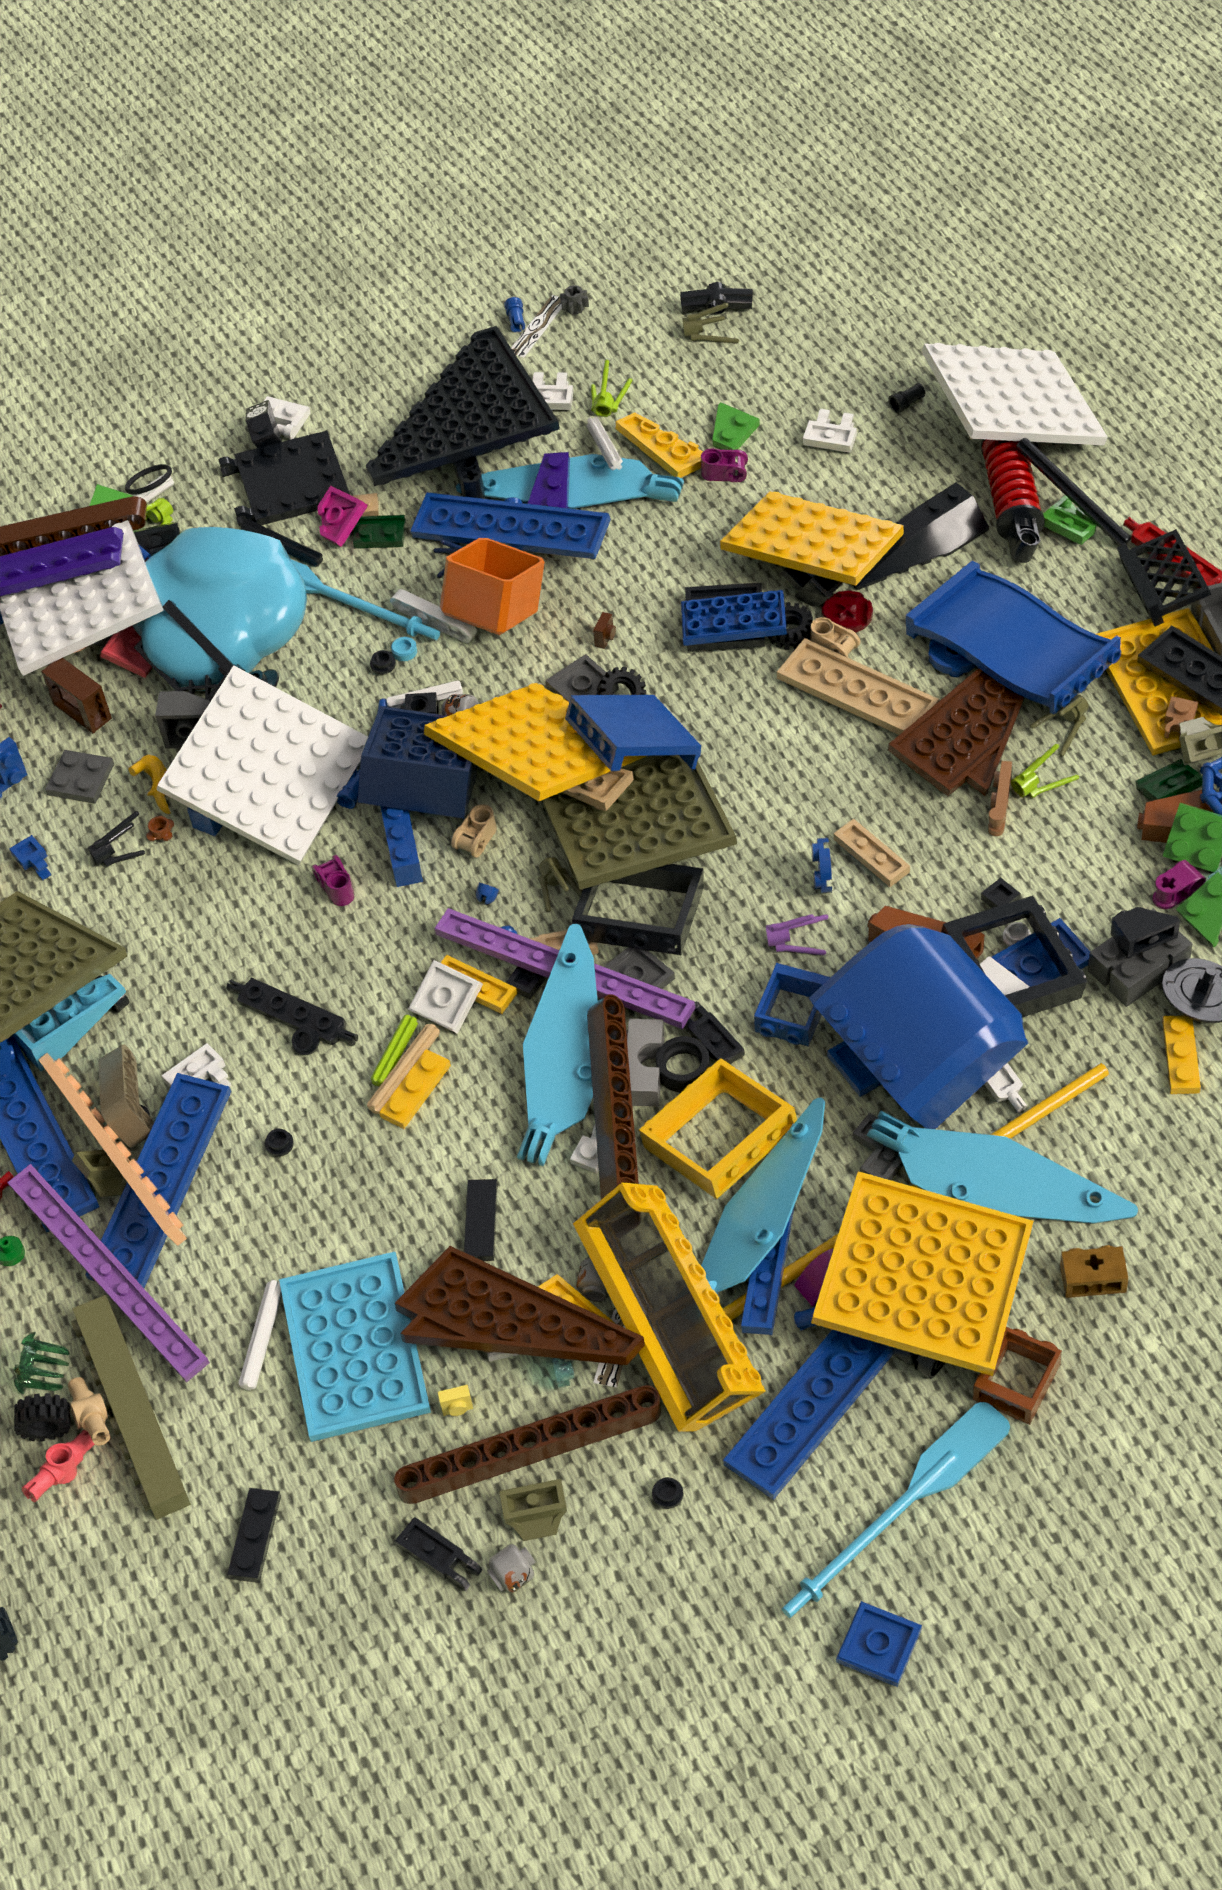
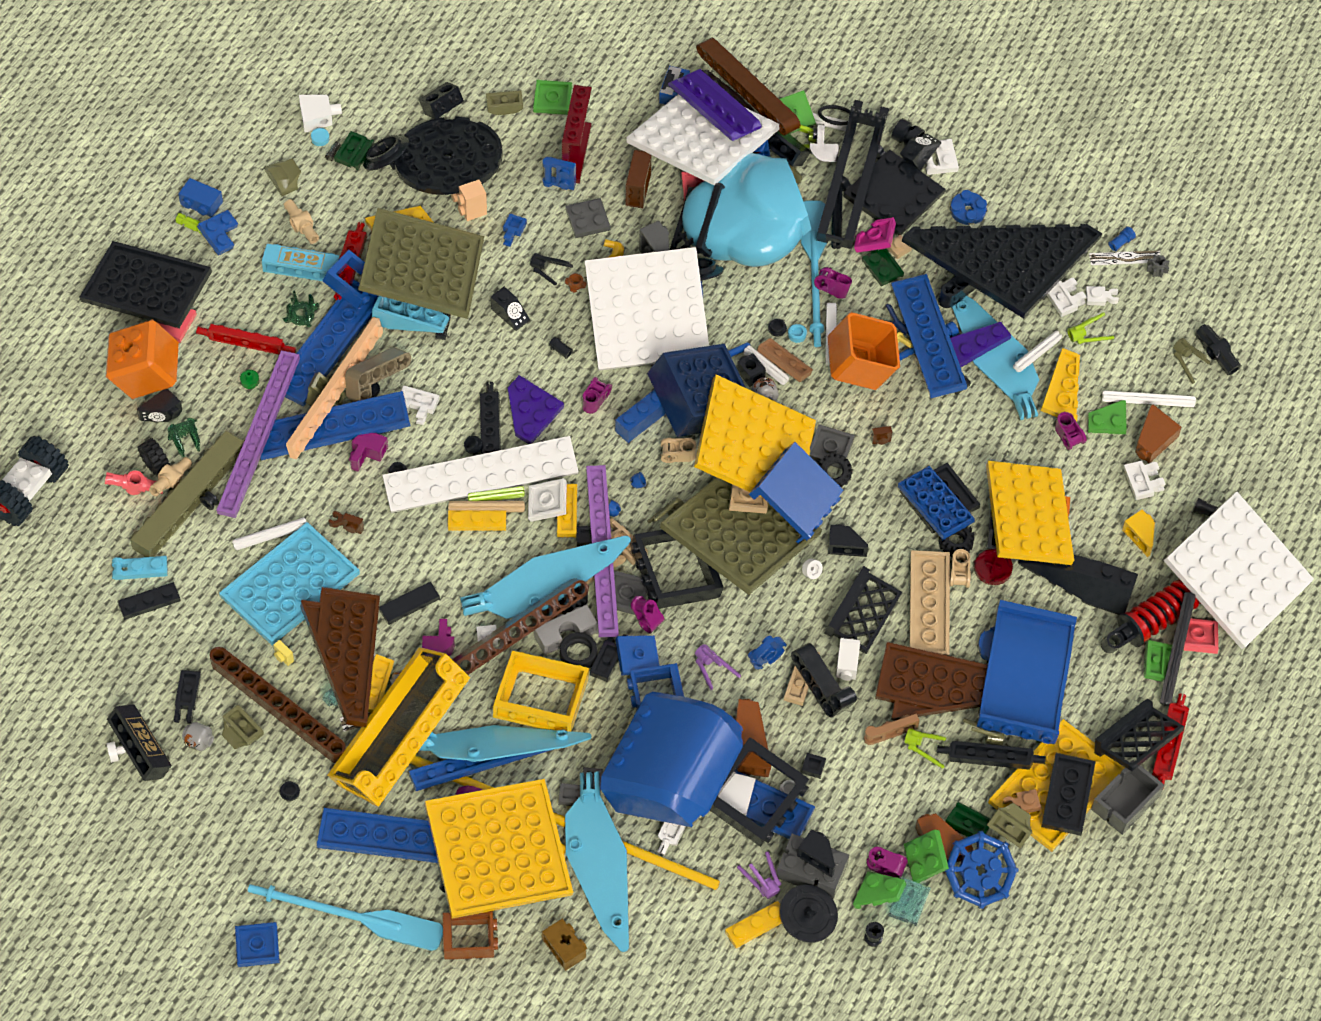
camera: 50 degrees right, 5 degrees up
(142, 912) = (509, 308): none -> black slope
(157, 1383) = (209, 500): none -> black bush
(179, 508) = (823, 150): none -> brick
(194, 1521) = (139, 567): none -> medium azure plate
(209, 439) = (855, 116): none -> black piece
(218, 1158) = (367, 445): none -> magenta brick
(229, 427) = (905, 131): none -> black wheel
(239, 885) = (557, 345): none -> black pin
(299, 957) = (531, 409): none -> dark purple plate
(316, 1230) = (349, 522): none -> reddish brown plate
(352, 1055) = (480, 473): none -> white plate
(368, 580) = (834, 283): none -> magenta piece
(372, 412) = (971, 199): none -> blue plate
(433, 674) = (784, 360): none -> medium nougat plate
(463, 1690) = (114, 751): none -> white tile
(473, 1647) = (139, 742): none -> black brick
(566, 1207) = (443, 642): none -> magenta brick
(571, 365) = (1098, 296): none -> white plate
(684, 964) = (647, 613): none -> magenta piece
(721, 727) = (846, 541): none -> black slope
(731, 384) = (1149, 398): none -> white axle
(731, 1002) = (636, 653): none -> blue plate
(732, 776) = (812, 568): none -> white tile
(782, 395) = (1156, 435): none -> dark orange slope
(805, 764) = (852, 598): none -> black fence
(884, 793) = (847, 659): none -> white slope
(899, 462) = (1141, 531): none -> yellow slope
(902, 832) = (821, 682): none -> black beam
(1074, 468) = (1202, 636): none -> coral plate
(1098, 719) = (991, 755): none -> black plate
(1140, 1013) = (768, 887): none -> medium lavender plant

